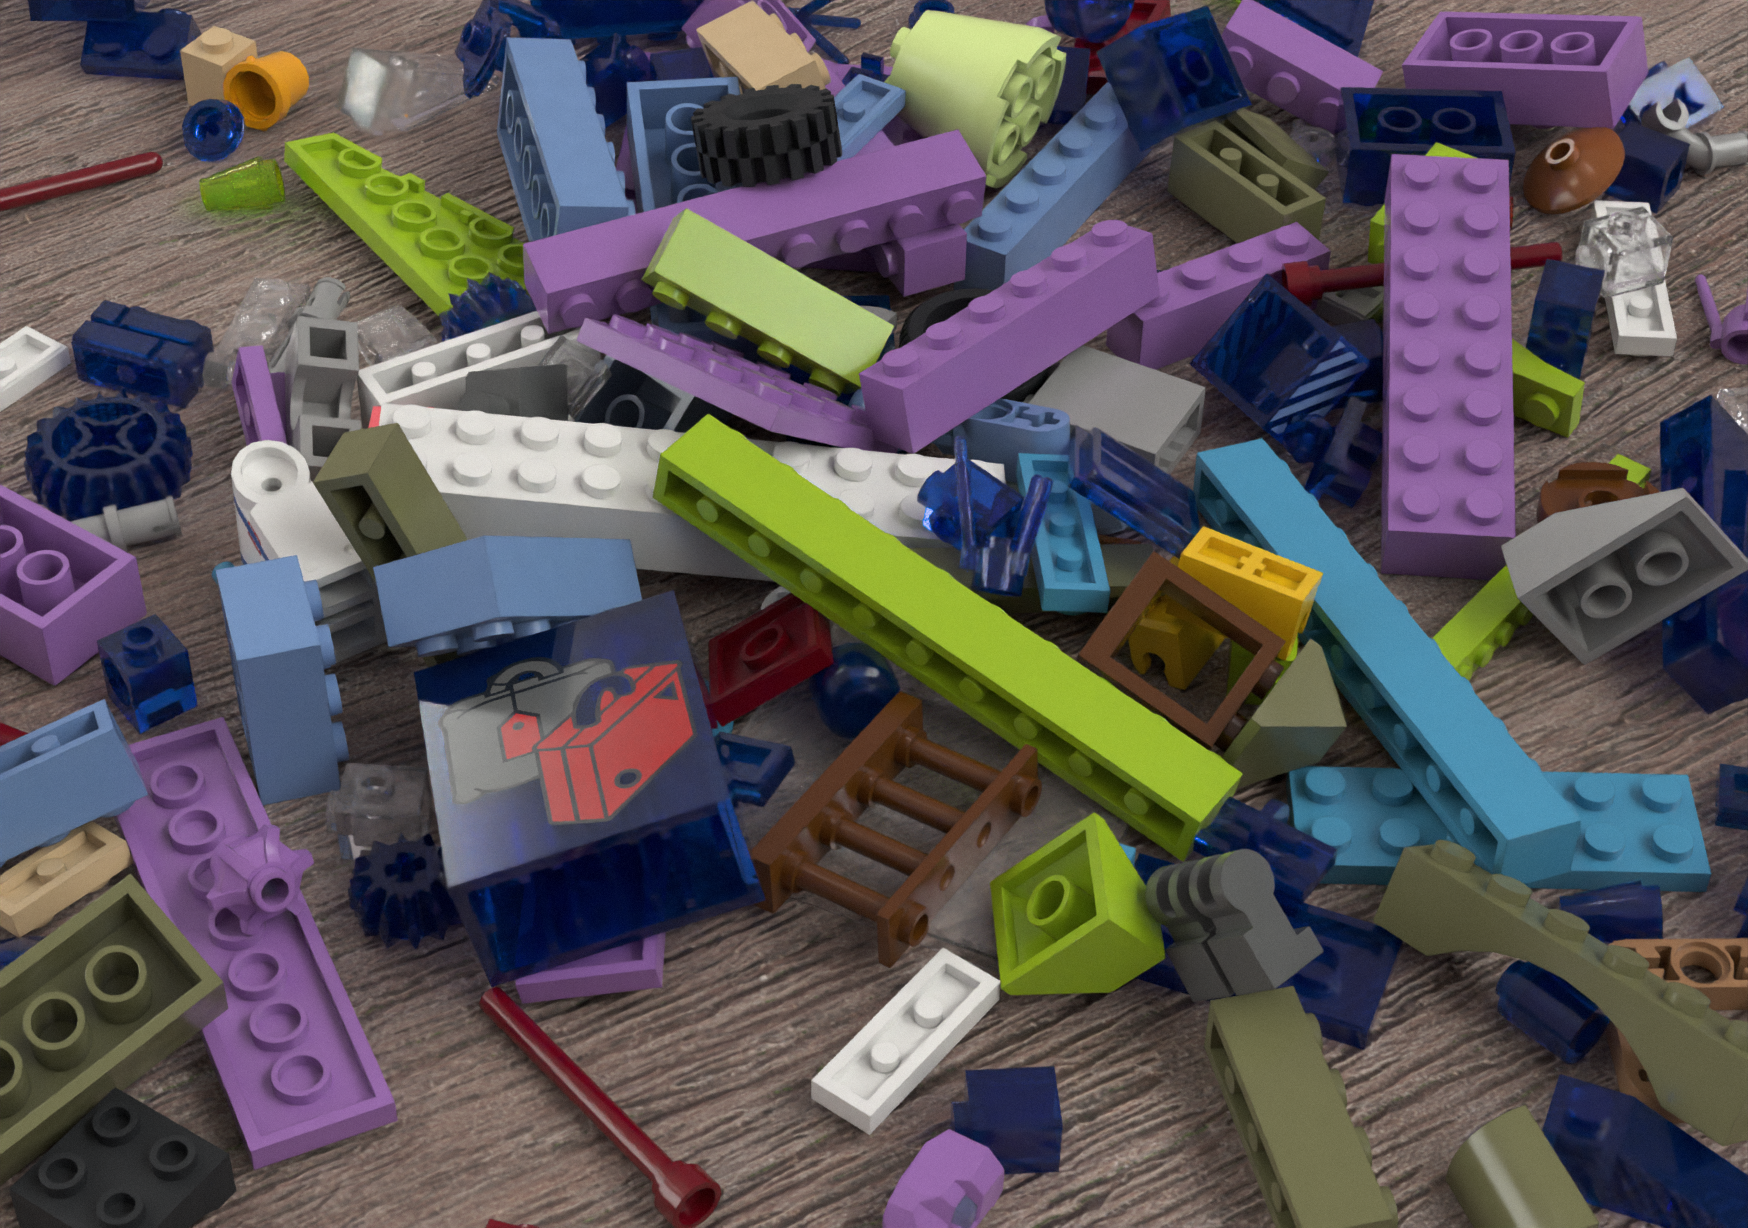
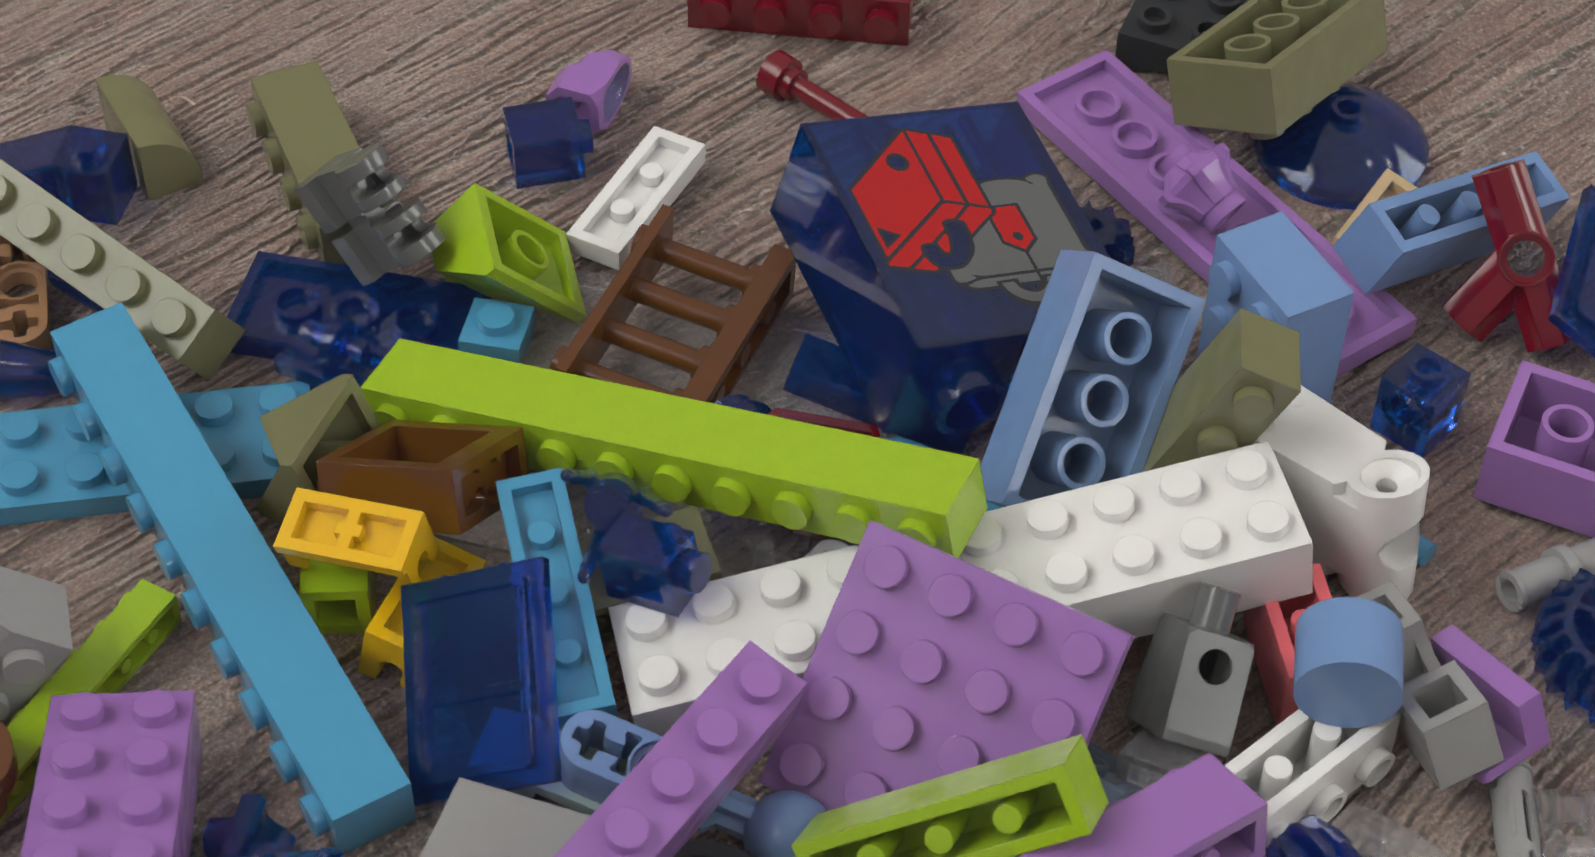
camera: 170 degrees right, 5 degrees up
(393, 353) = (1348, 662): none -> medium blue piece

